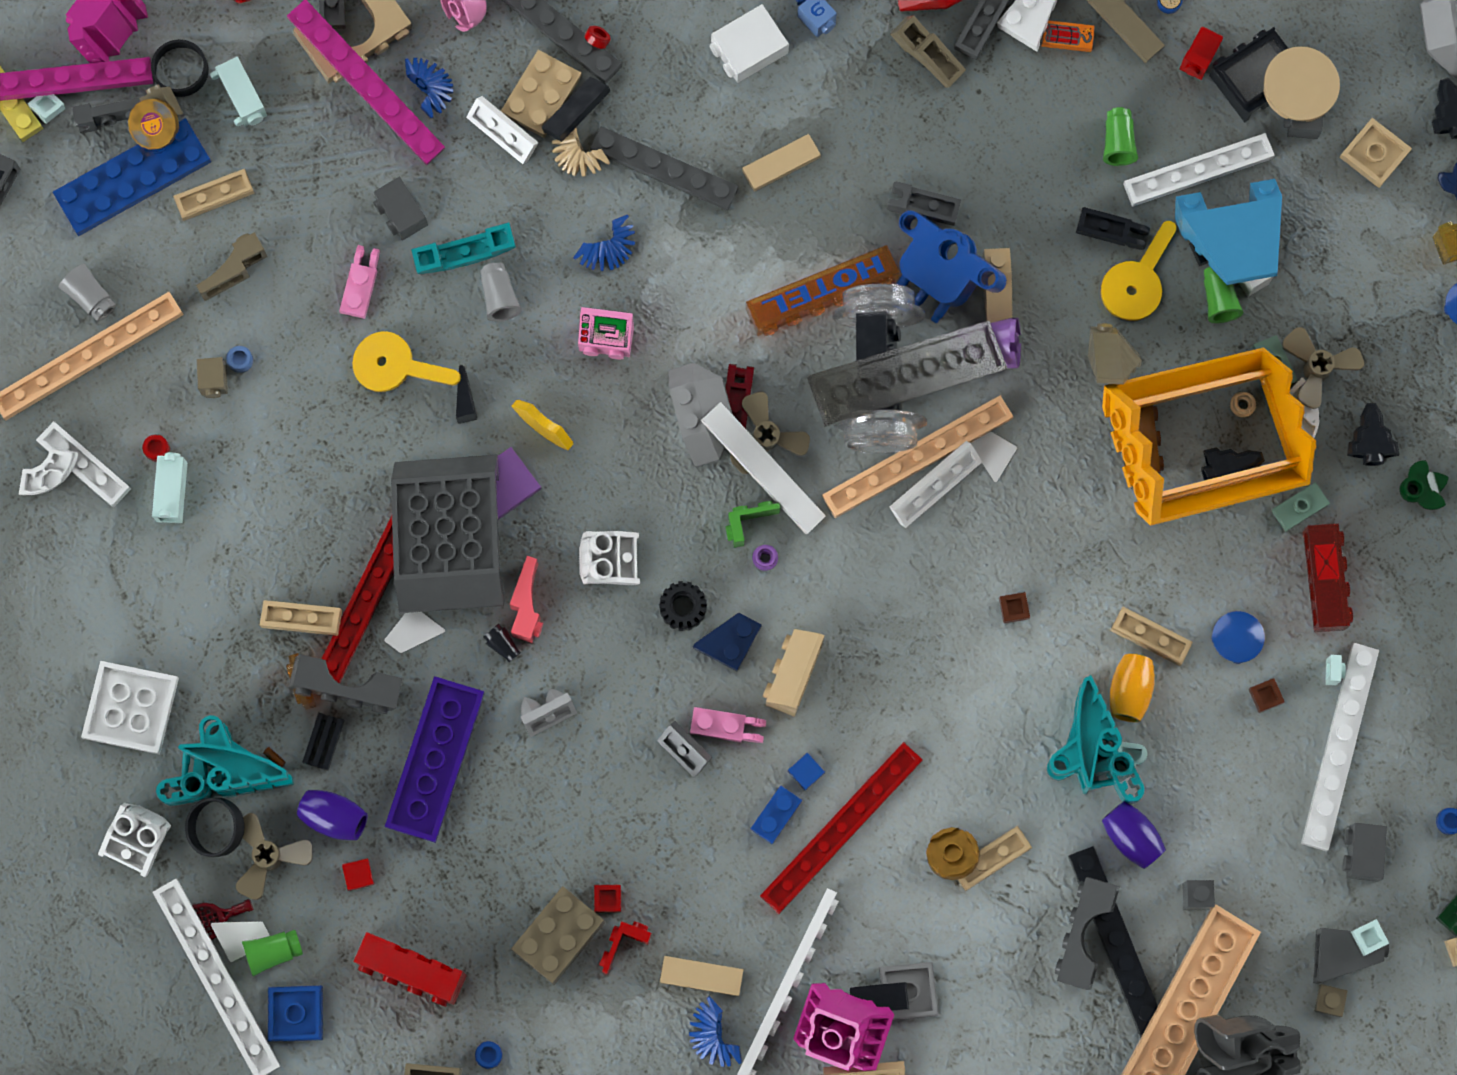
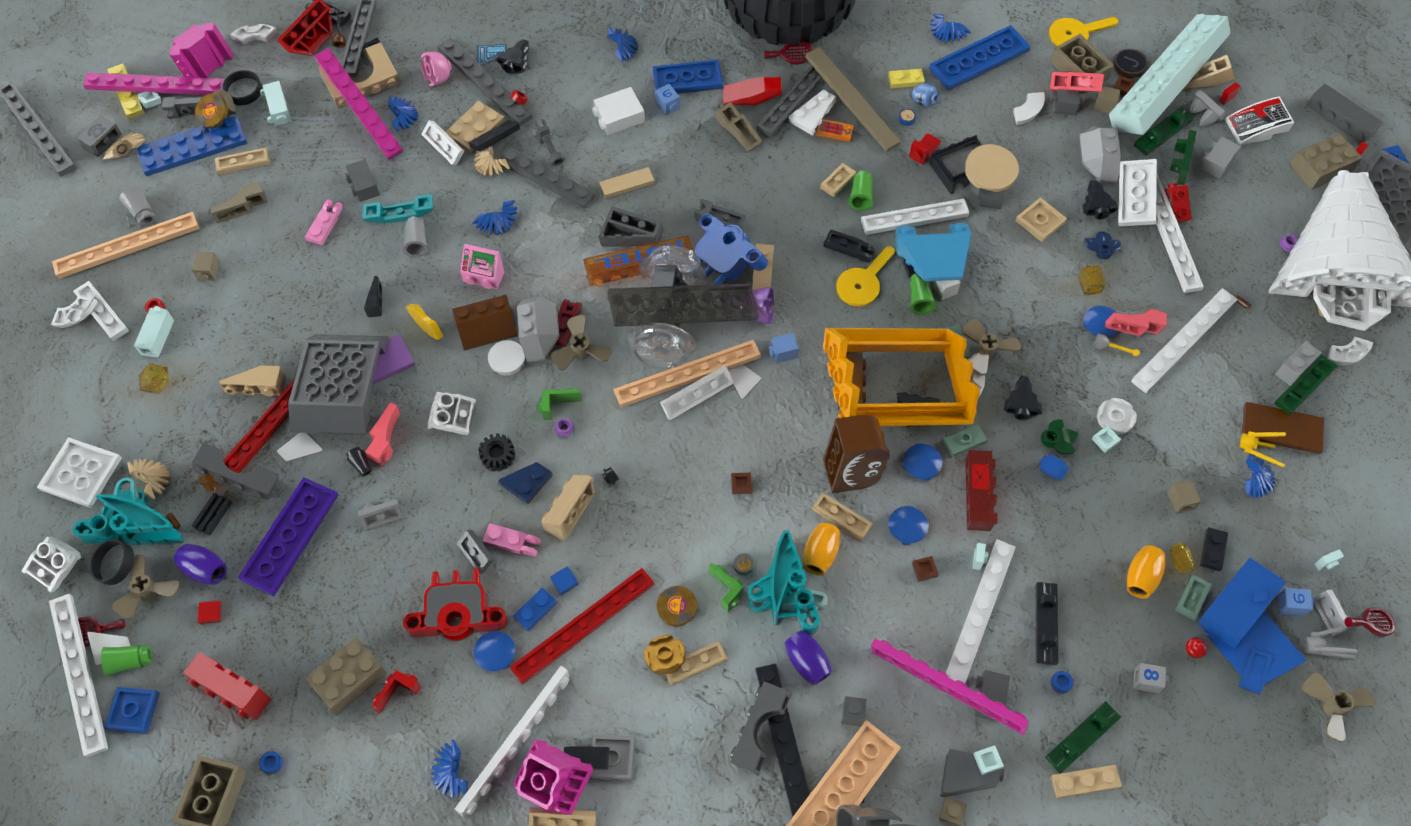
camera: 10 degrees right, 15 degrees down
(33, 190) = (124, 146): none -> tan hair
(192, 560) = (153, 378): none -> clear yellow brick
(227, 698) = (151, 474): none -> tan hair
(239, 359) = (229, 259): medium blue tile -> none
(300, 617) = (219, 426): tan plate -> none
(338, 542) = (259, 380): none -> tan slope
(397, 366) = (335, 272): yellow piece -> none
(607, 898) = (392, 654): red tile -> none
(627, 415) = (485, 322): none -> reddish brown slope
(666, 463) = (506, 357): none -> white tile
(671, 818) = (451, 601): none -> red piece
(672, 134) = (544, 137): none -> dark grey bar
(701, 976) = (451, 723): tan tile -> none
(736, 876) = (494, 651): none -> blue dish
(763, 468) = (573, 365): white tile -> none
(801, 244) = (629, 229): none -> dark grey wedge
(840, 619) = (610, 475): none -> black plate
(956, 786) = (676, 606): none -> pearl gold tile
(1027, 768) = (732, 598): none -> bright green bracket
(1033, 718) = (743, 564): none -> flat silver tile
(1043, 402) = (784, 348): none -> medium blue brick
(1083, 122) = (838, 180): none -> tan plate
(1111, 355) = (836, 316): dark tan wedge -> none
(1162, 557) = (855, 453): none -> reddish brown brick
(1244, 397) = (929, 362): tan plate -> none
(1247, 544) = (922, 461): none -> blue dish
(1323, 853) = (956, 689): none -> dark pink plate
(1419, 531) = (1053, 467): none -> blue brick
(1425, 746) = (1046, 623): none -> black hinge

